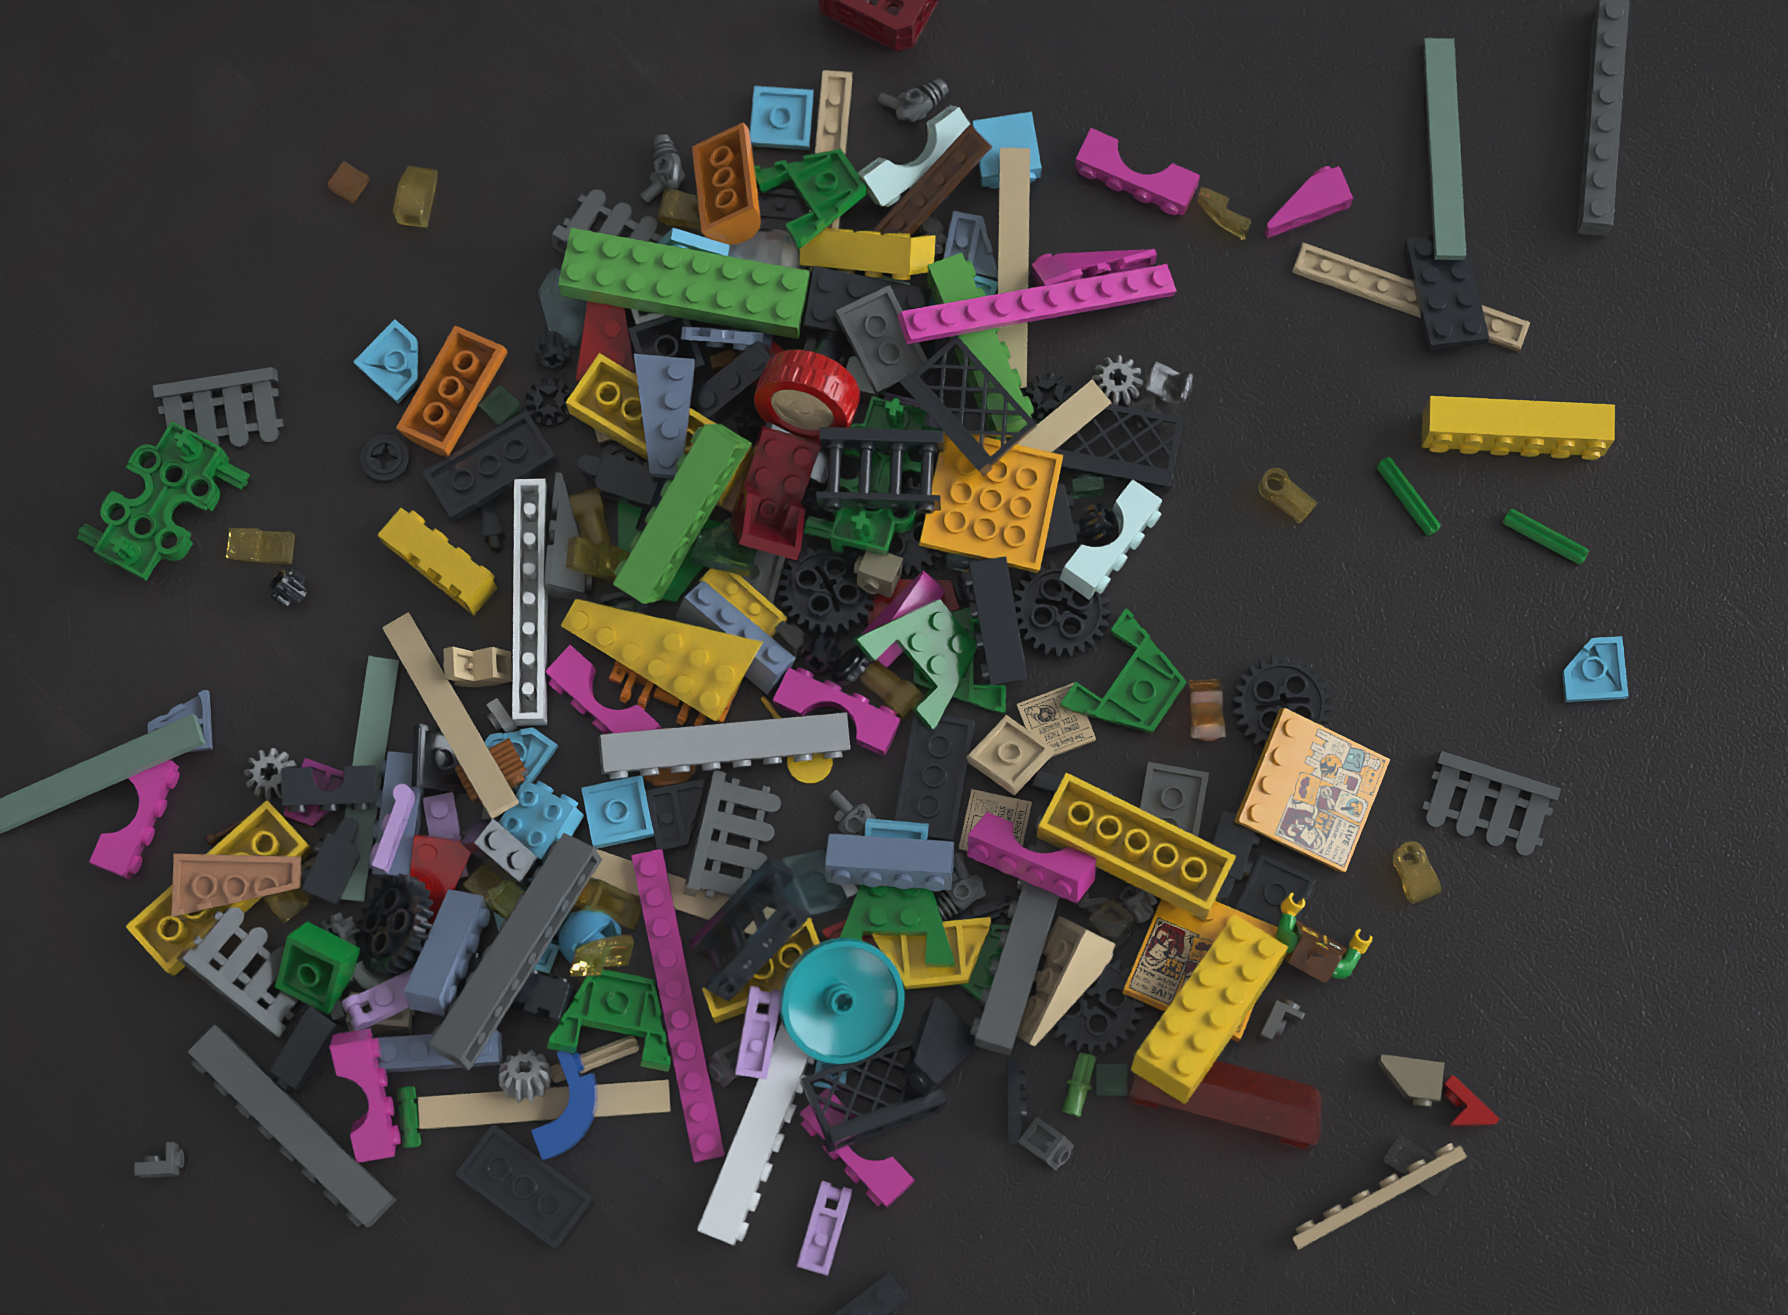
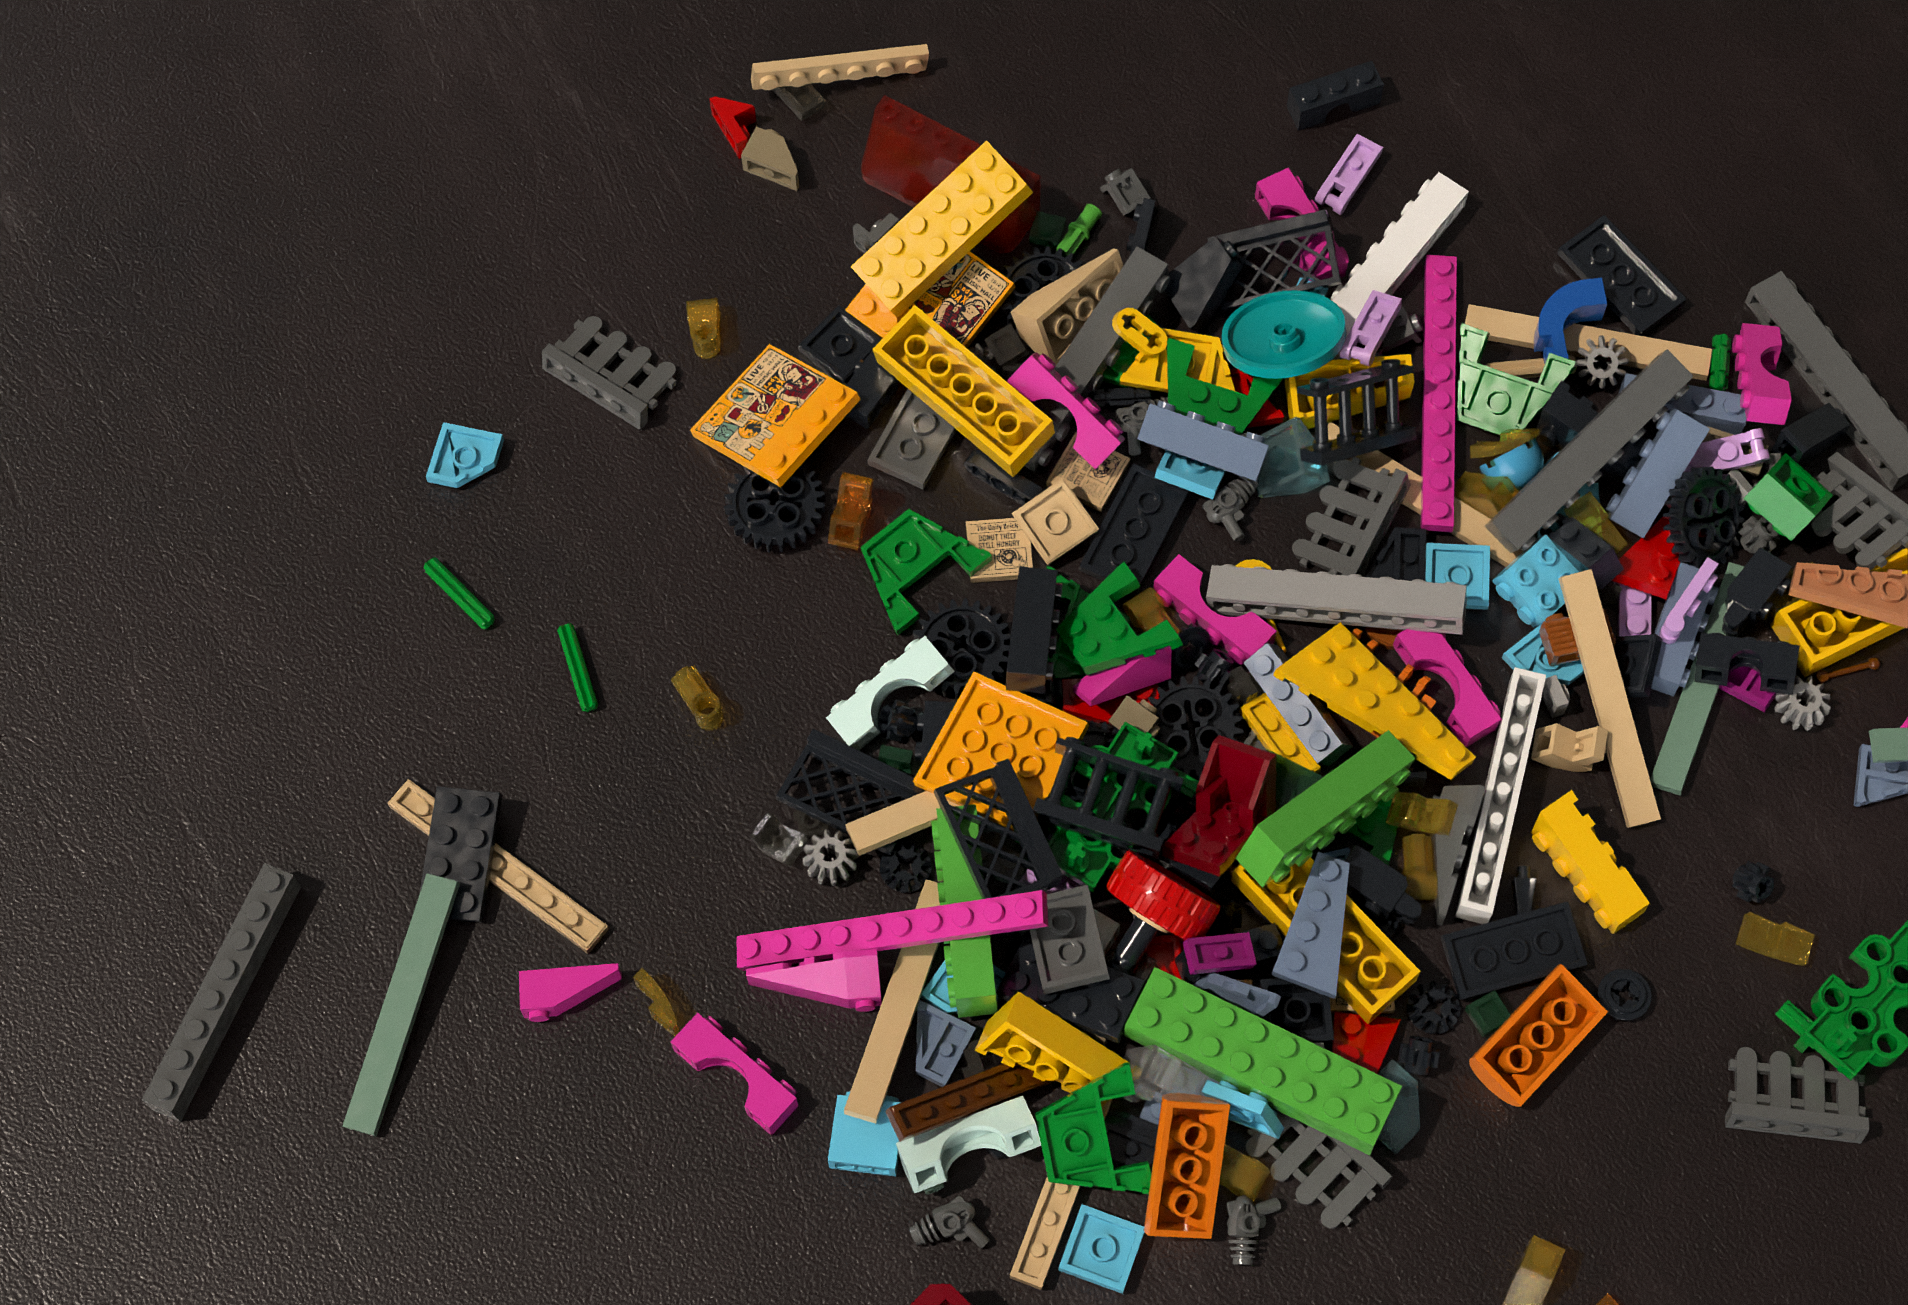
camera: 165 degrees left, 10 degrees down
(392, 361) = (1596, 1095): medium azure plate -> none
(743, 358) = (1219, 953): none -> magenta plate
(982, 966) = (1135, 336): none -> yellow beam
(1314, 951) = (823, 273): torso -> none
(1518, 427) = (444, 690): yellow brick -> none

